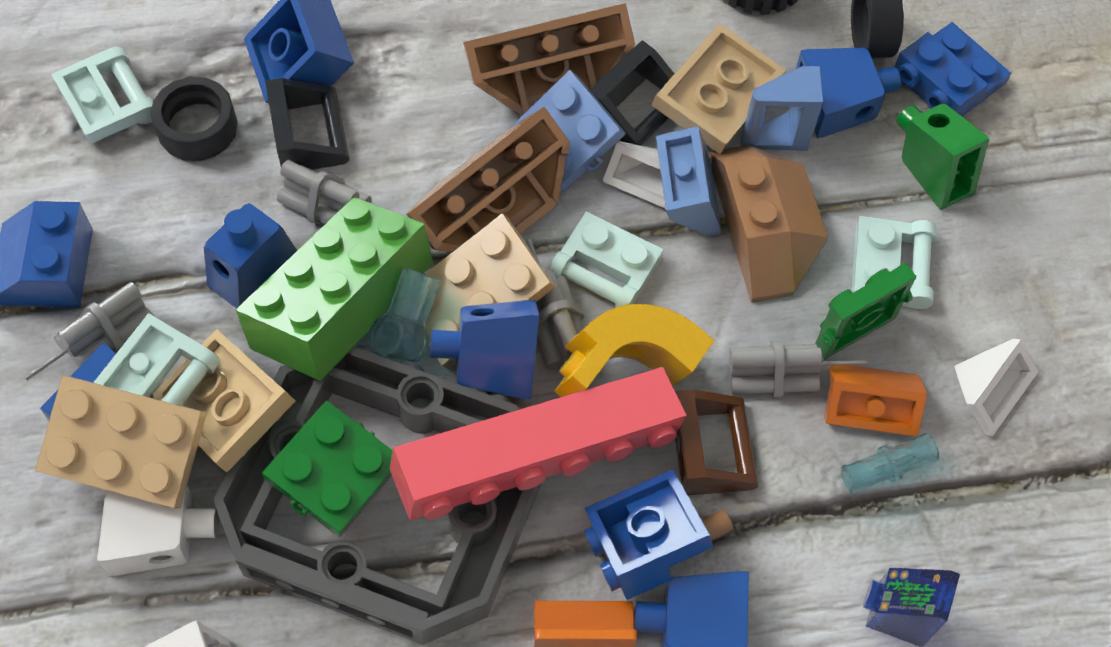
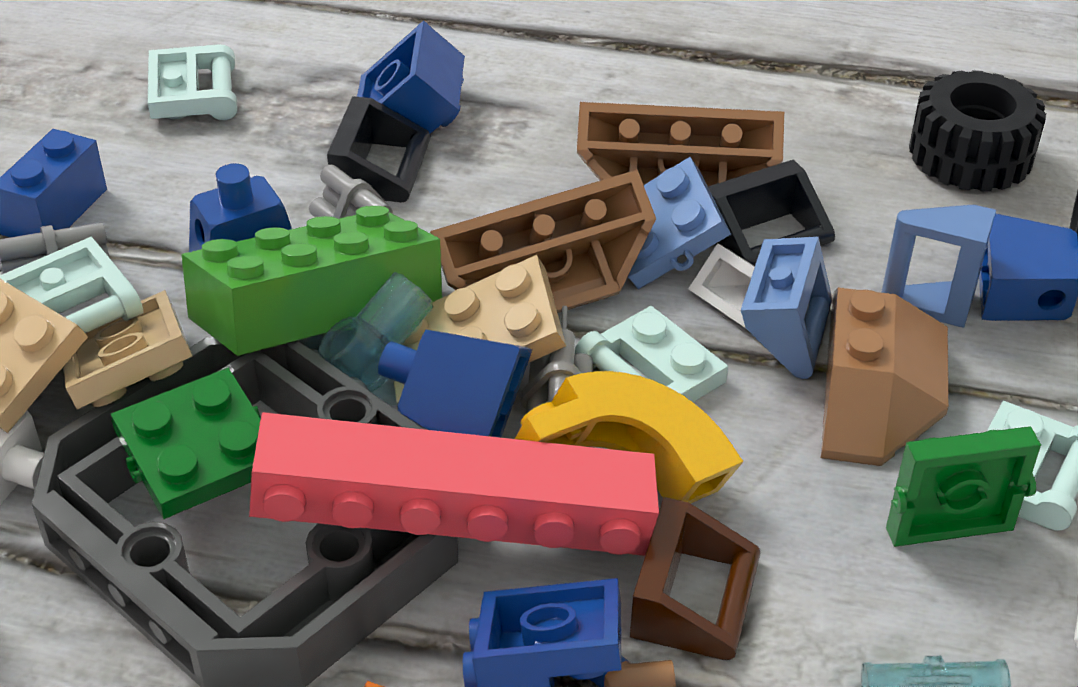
camera: 25 degrees right, 20 degrees down
(186, 93) = (266, 140): black tyre -> none
(716, 87) = (859, 225): tan plate -> none
(778, 368) = (821, 526): light grey piece -> none
(875, 399) = (940, 605): orange panel -> none

